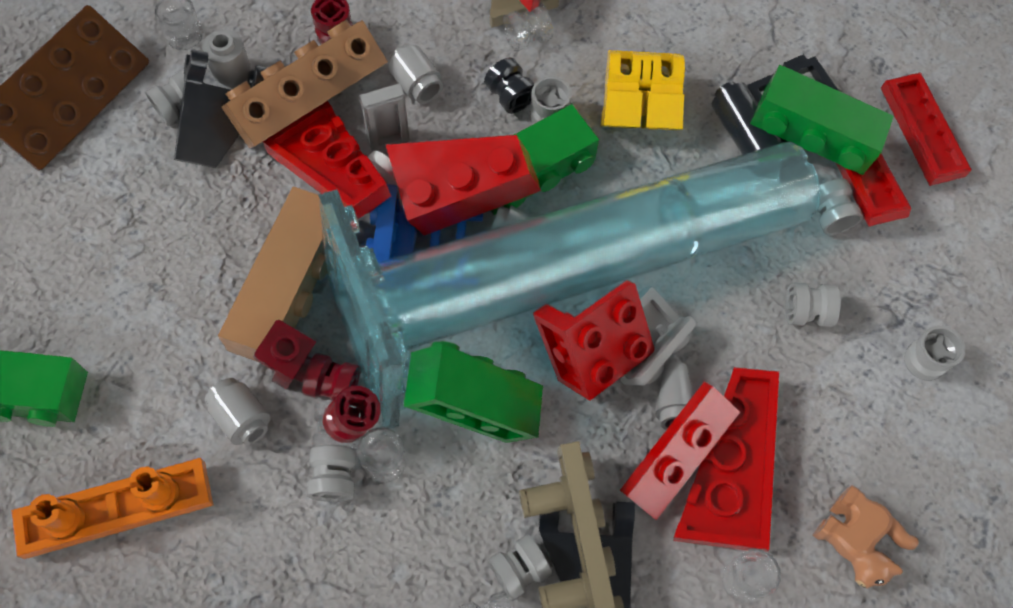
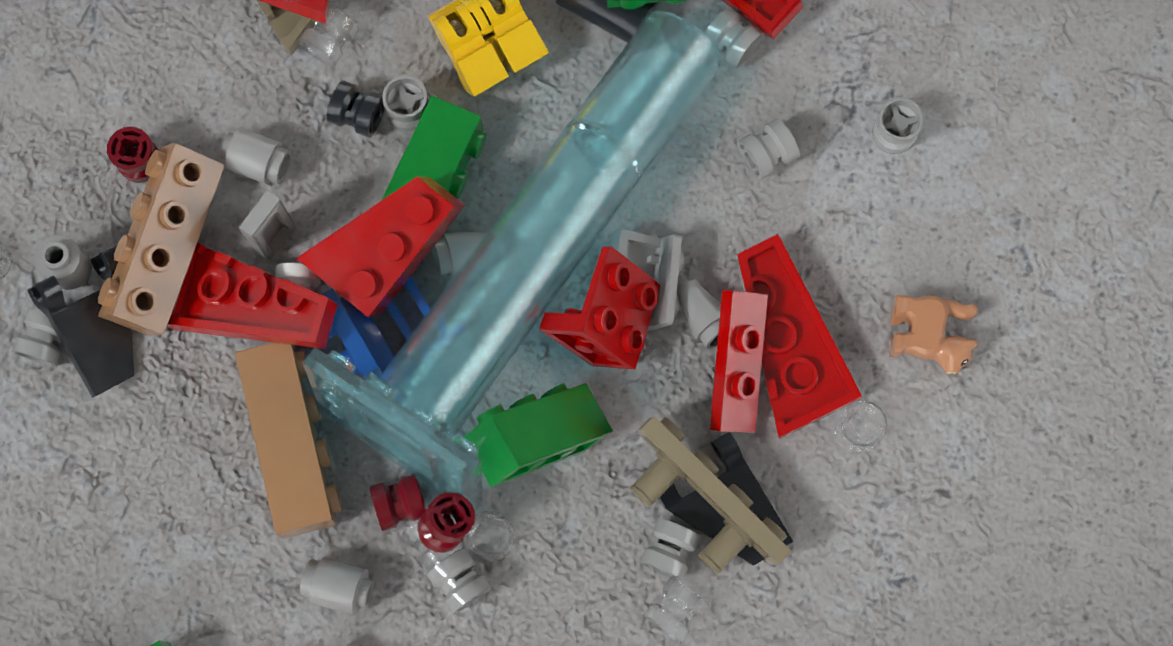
camera: 30 degrees left, 10 degrees up
(286, 353) = (346, 508): dark red bracket -> none

